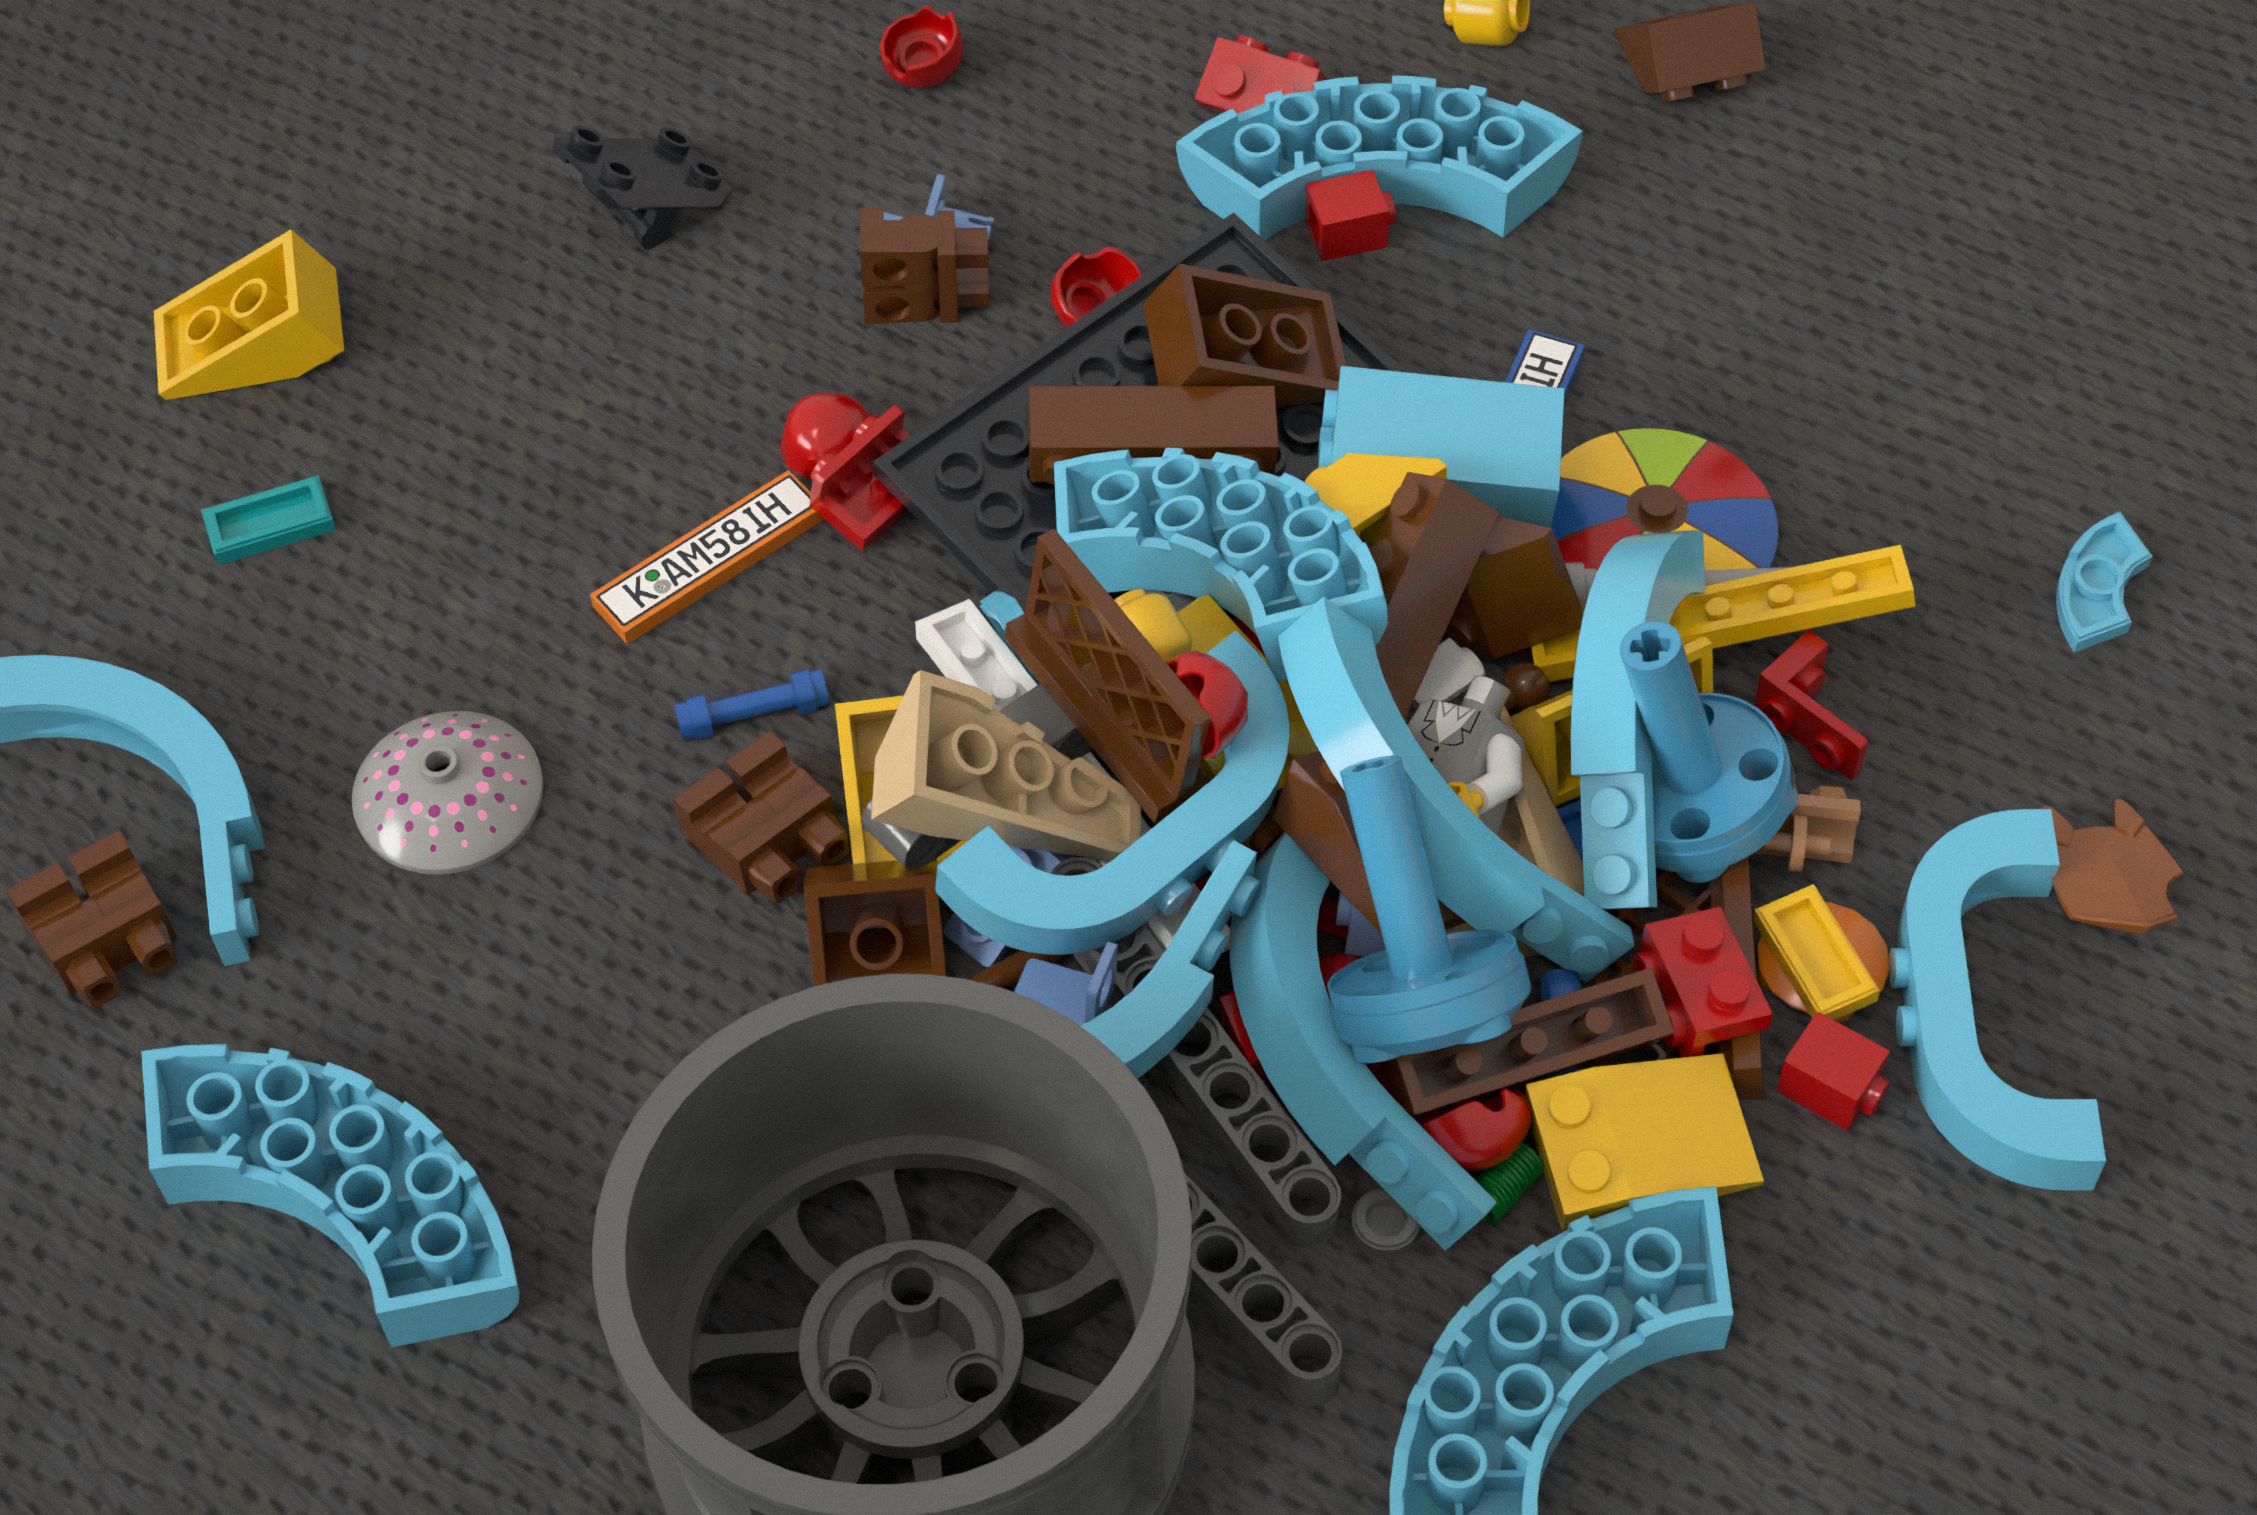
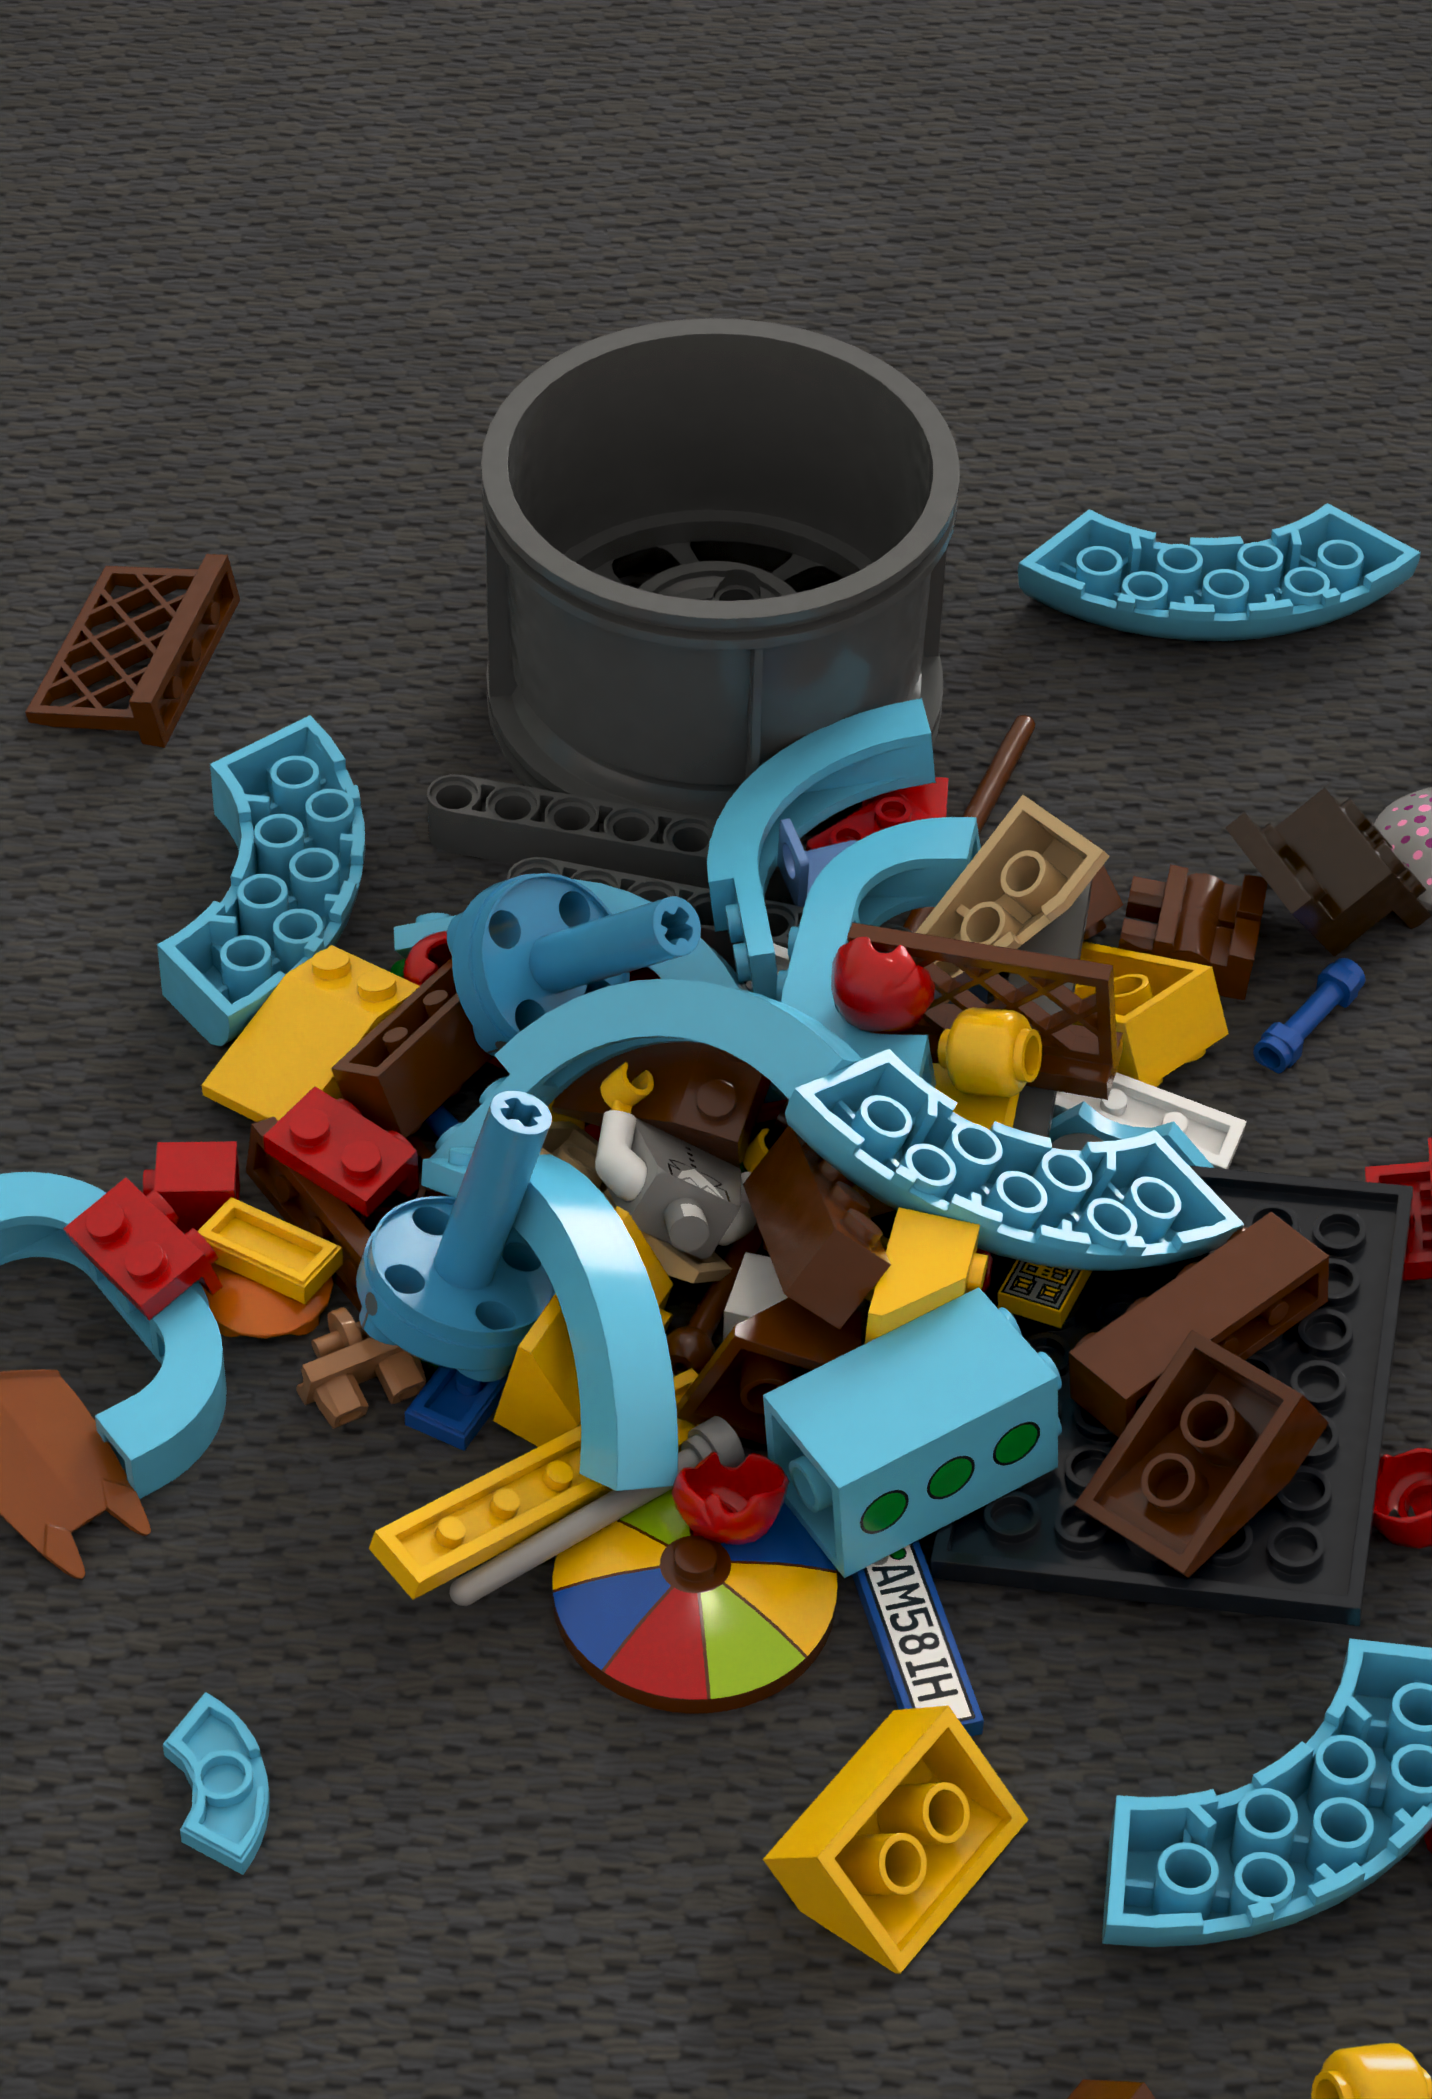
camera: 140 degrees right, 10 degrees down
(619, 767) = (1332, 870): none -> dark brown bracket
(1349, 215) = (1267, 1724): red brick -> none
(1607, 501) = (731, 1502): none -> red hair
(1657, 291) = (898, 1836): none -> yellow slope
(1786, 699) = (410, 1458): red bracket -> none
(1936, 979) = (142, 1249): none -> red bracket

